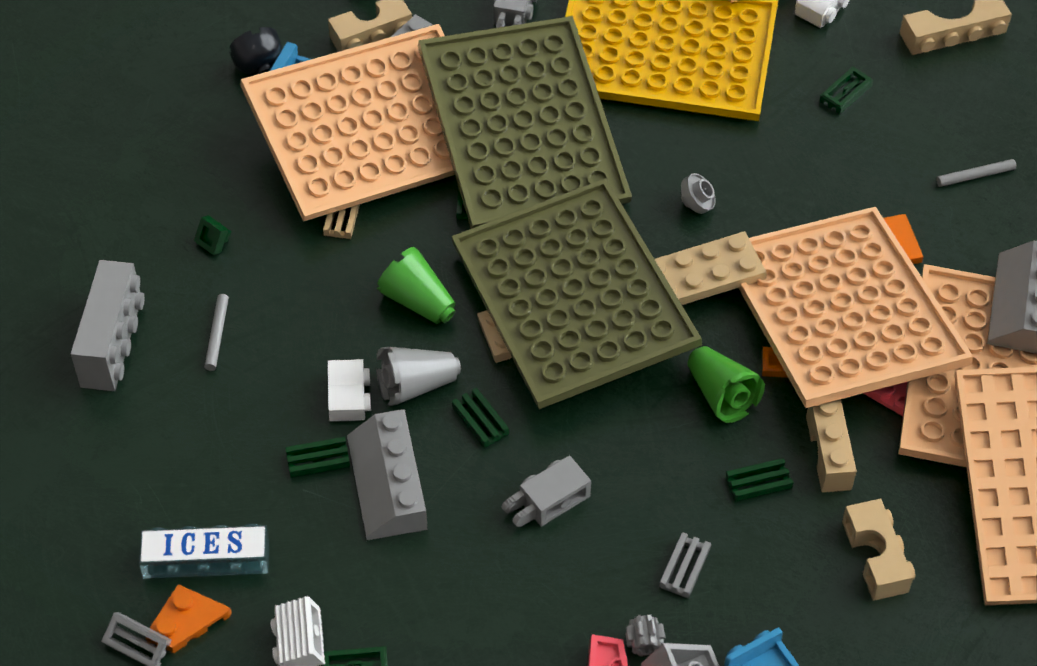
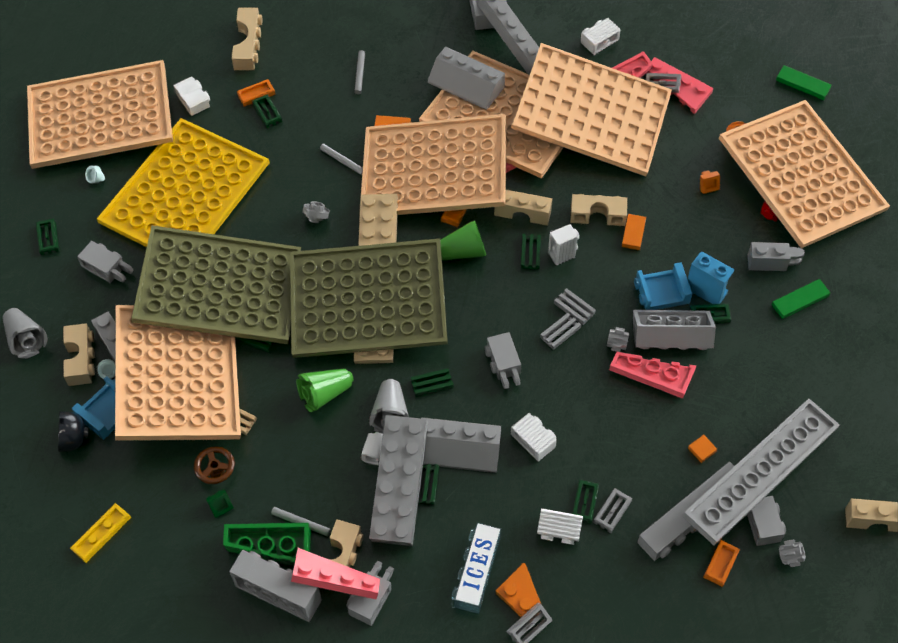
camera: 70 degrees left, 5 degrees up
(128, 366) = (330, 575): none -> coral wing
(131, 438) = (365, 608): none -> light grey hinge
(139, 135) = (100, 533): none -> yellow tile
(170, 312) = (269, 540): none -> green wedge
(199, 389) = (347, 538): none -> tan arch
(261, 213) = (218, 472): none -> reddish brown piece
(296, 410) = (398, 480): none -> light grey brick
(433, 566) = (534, 436): none -> white brick
(636, 553) = (571, 321): none -> light grey tile
(780, 510) = (563, 244): none -> white brick
(809, 196) = (342, 159): none -> light grey bar
(864, 613) = (634, 231): none -> orange tile
(868, 63) = (255, 91): none -> orange tile

